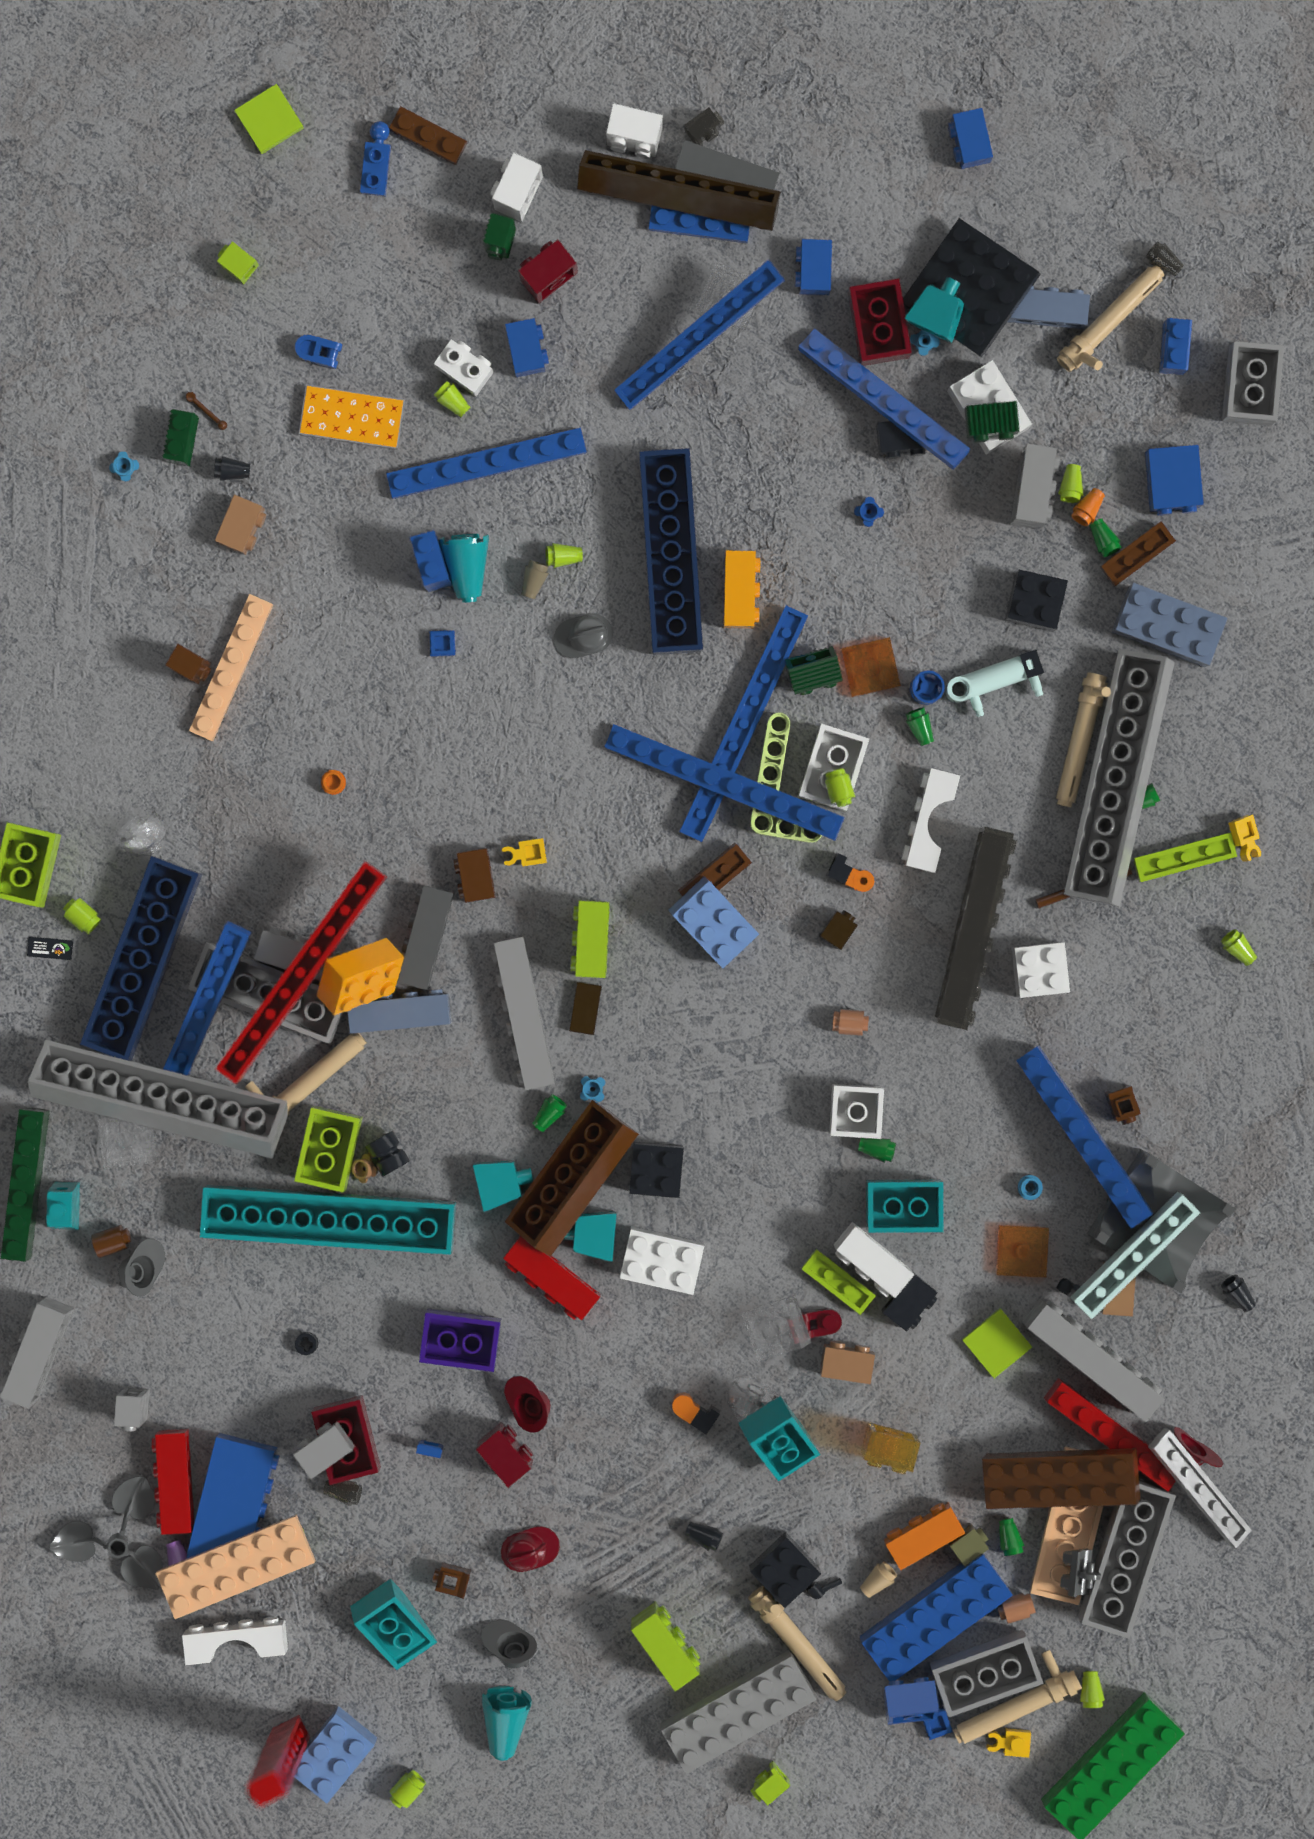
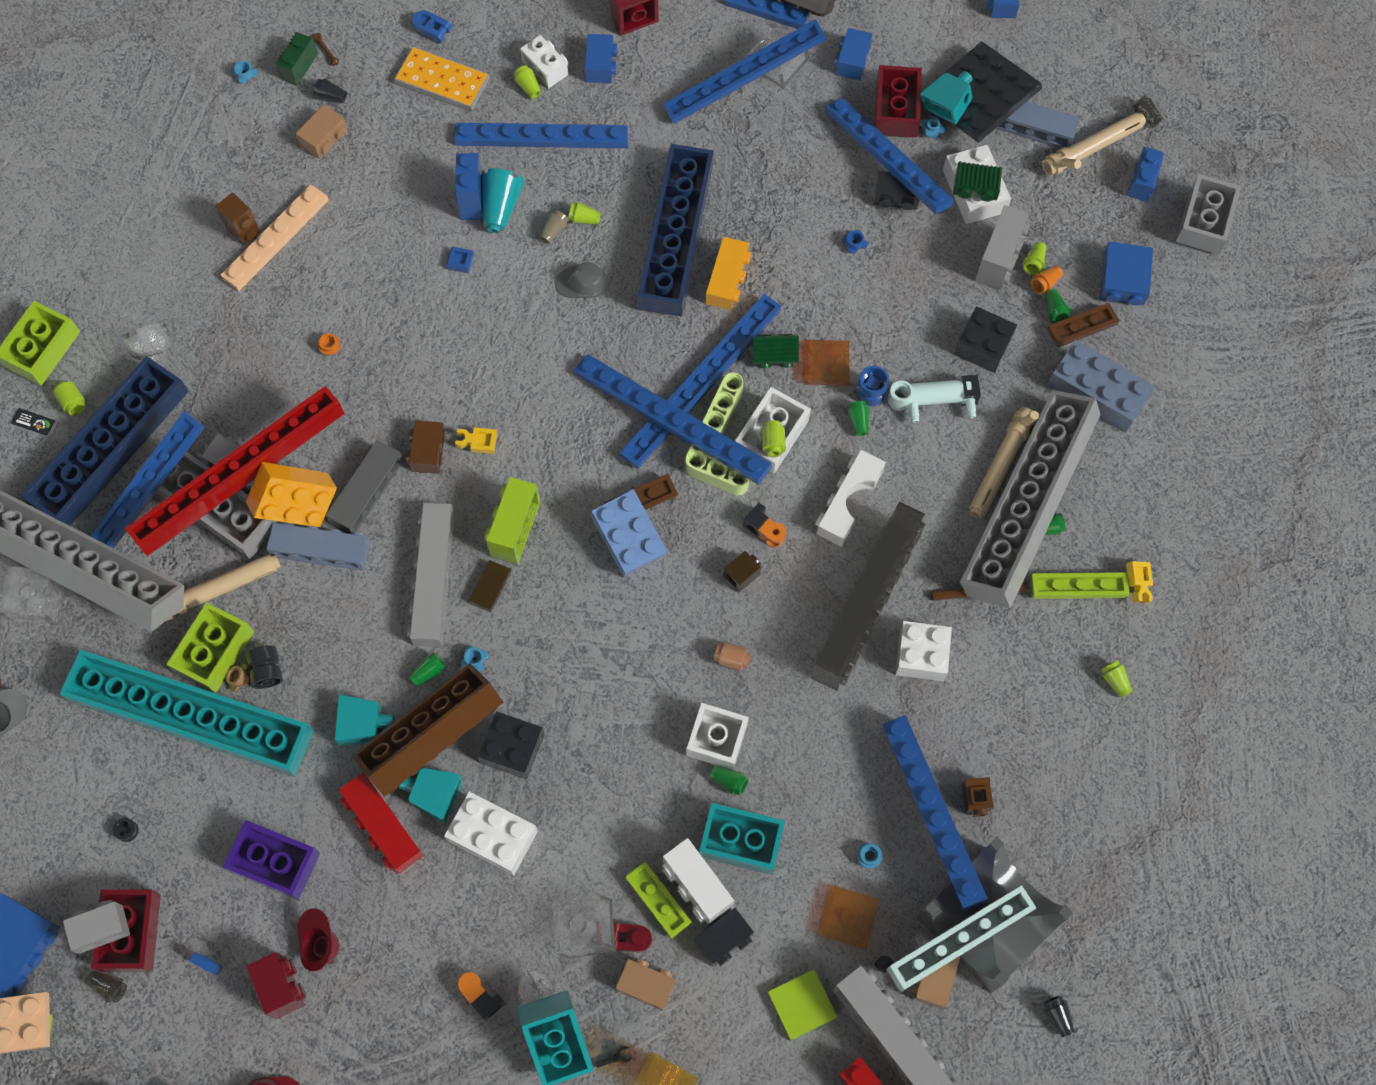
camera: 15 degrees right, 20 degrees down
(835, 1434) = (613, 1058): none -> black hand

